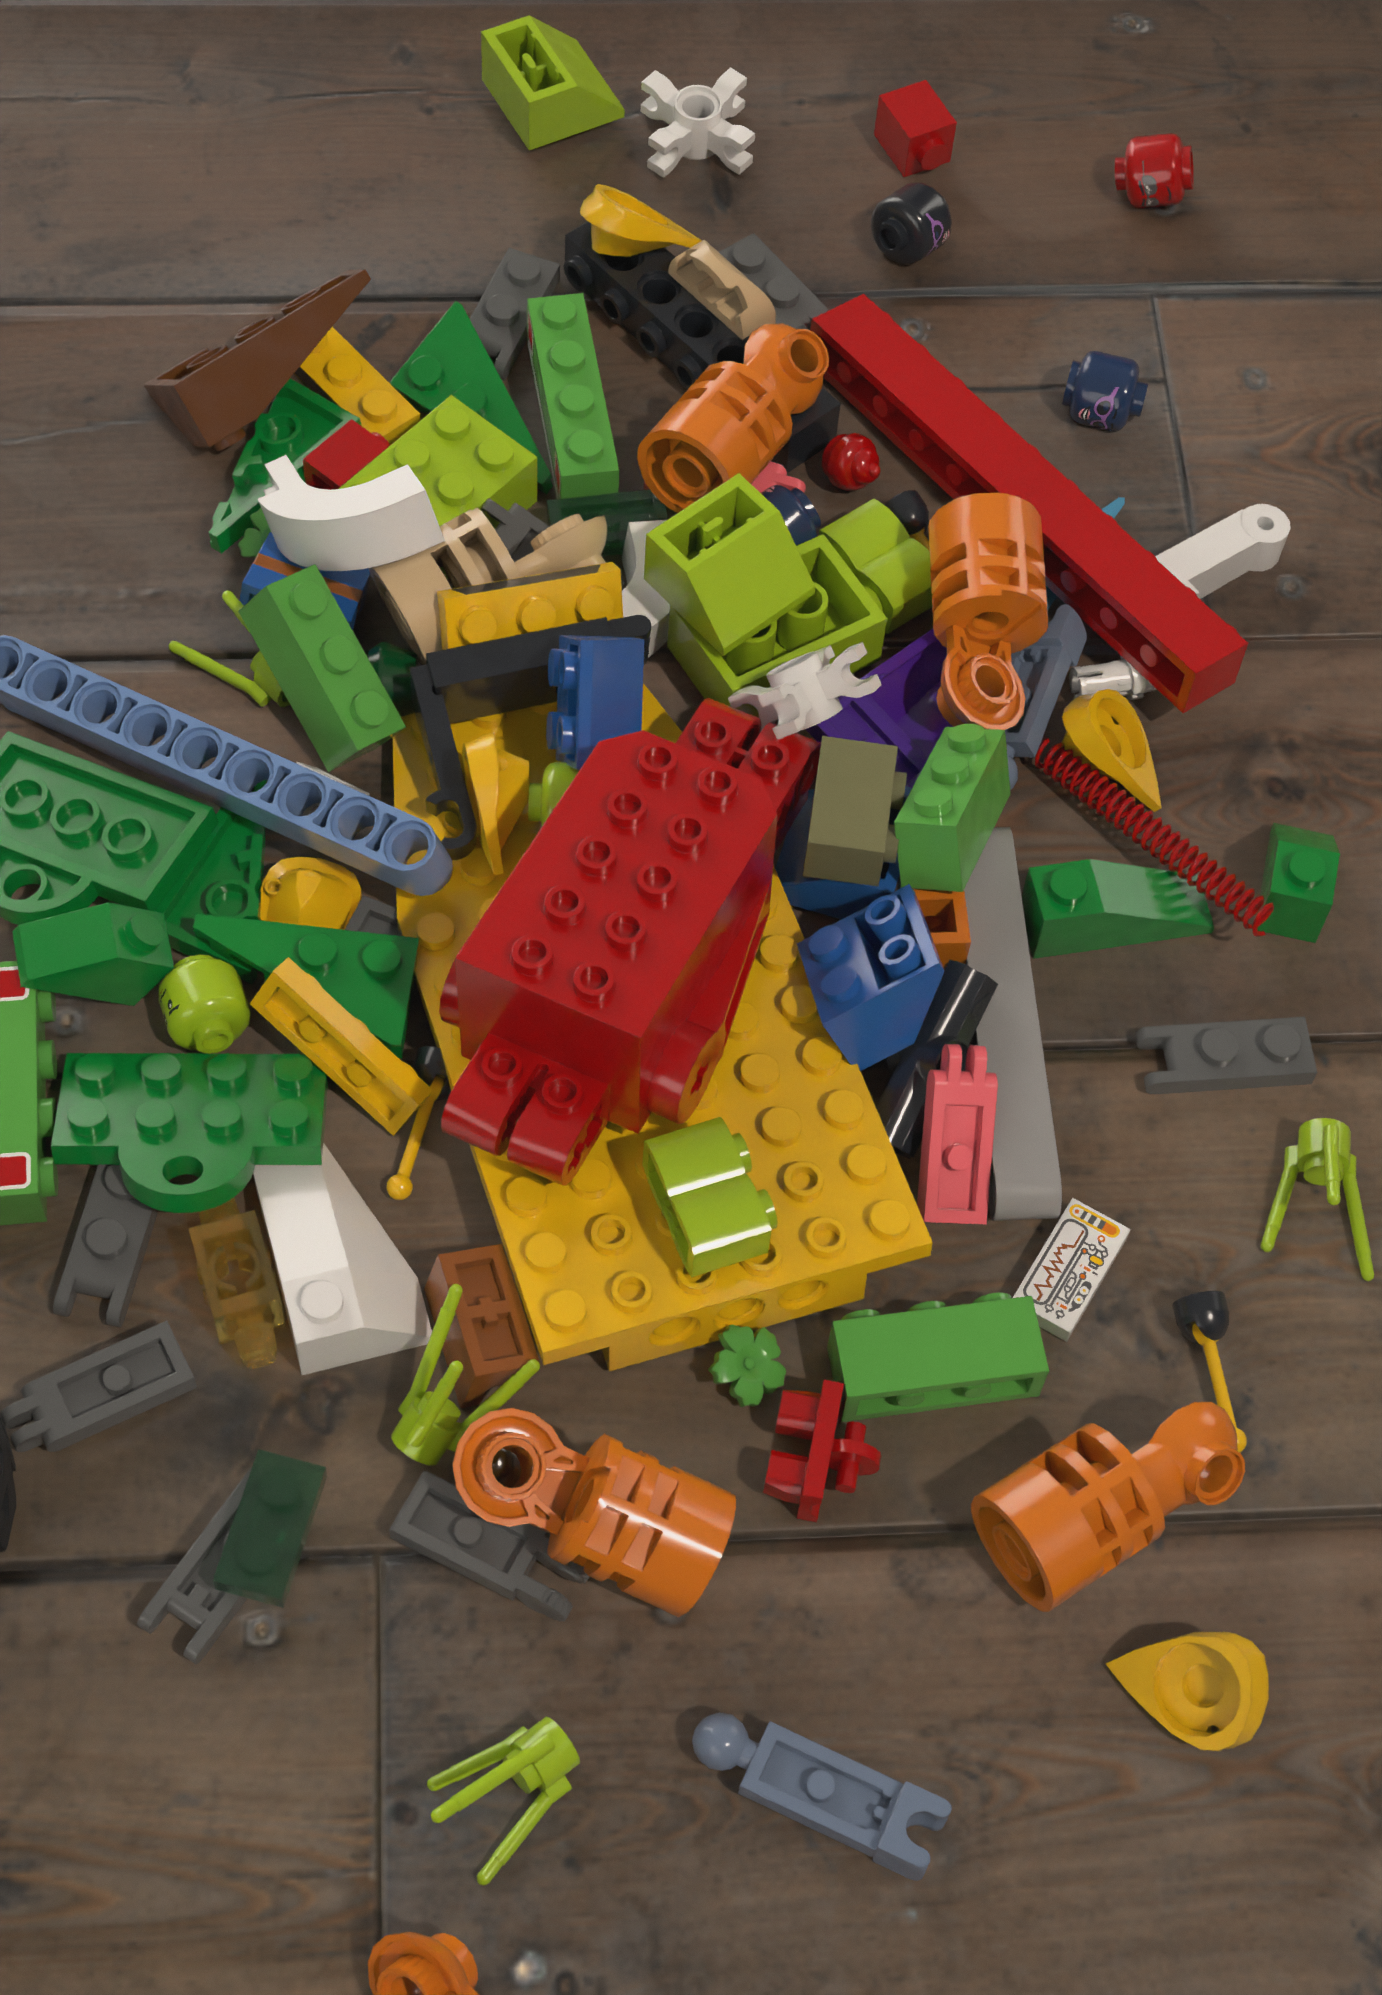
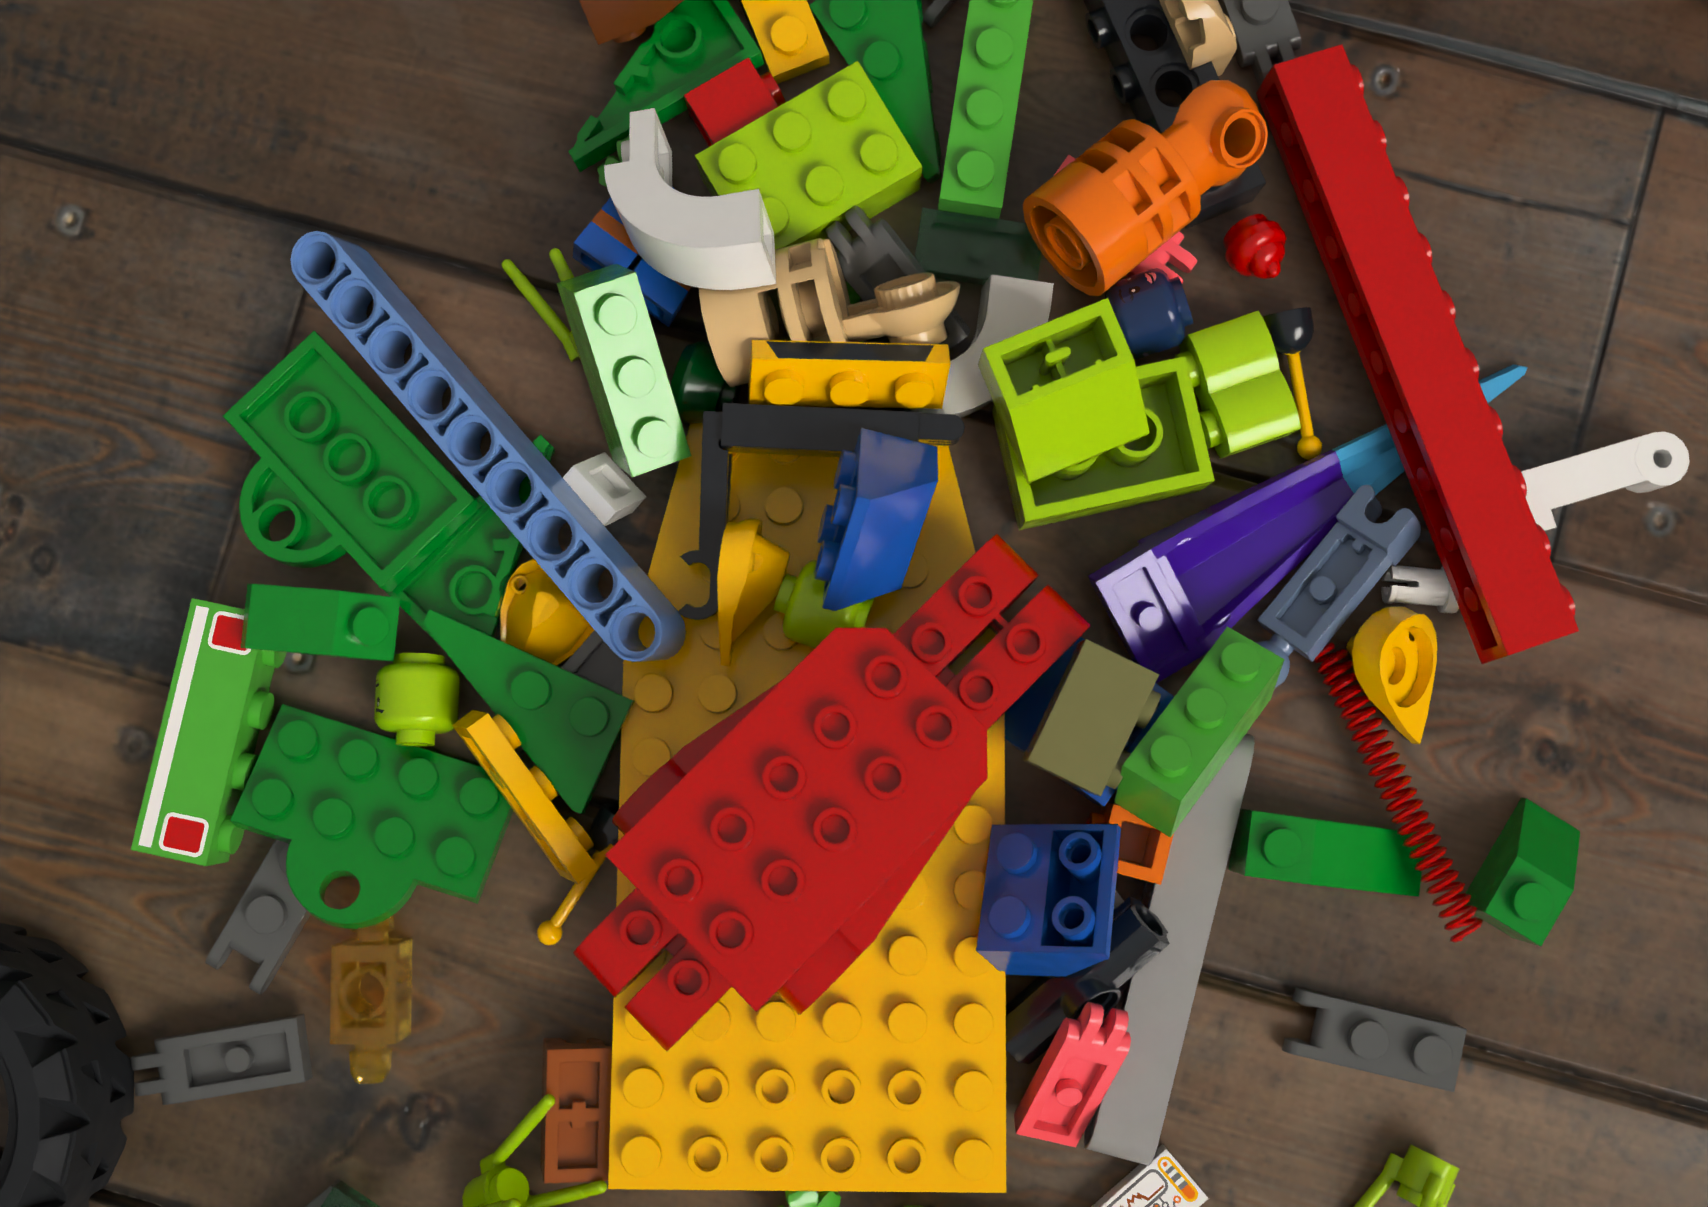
camera: 25 degrees right, 25 degrees up
(337, 1268) = (464, 1004): white wedge -> none
(708, 1196) = (803, 1103): lime brick -> none
(806, 690) = (1093, 564): white pin -> none
(986, 603) = (1325, 482): orange cylinder -> none
(1104, 391) = (1558, 231): dark blue head -> none

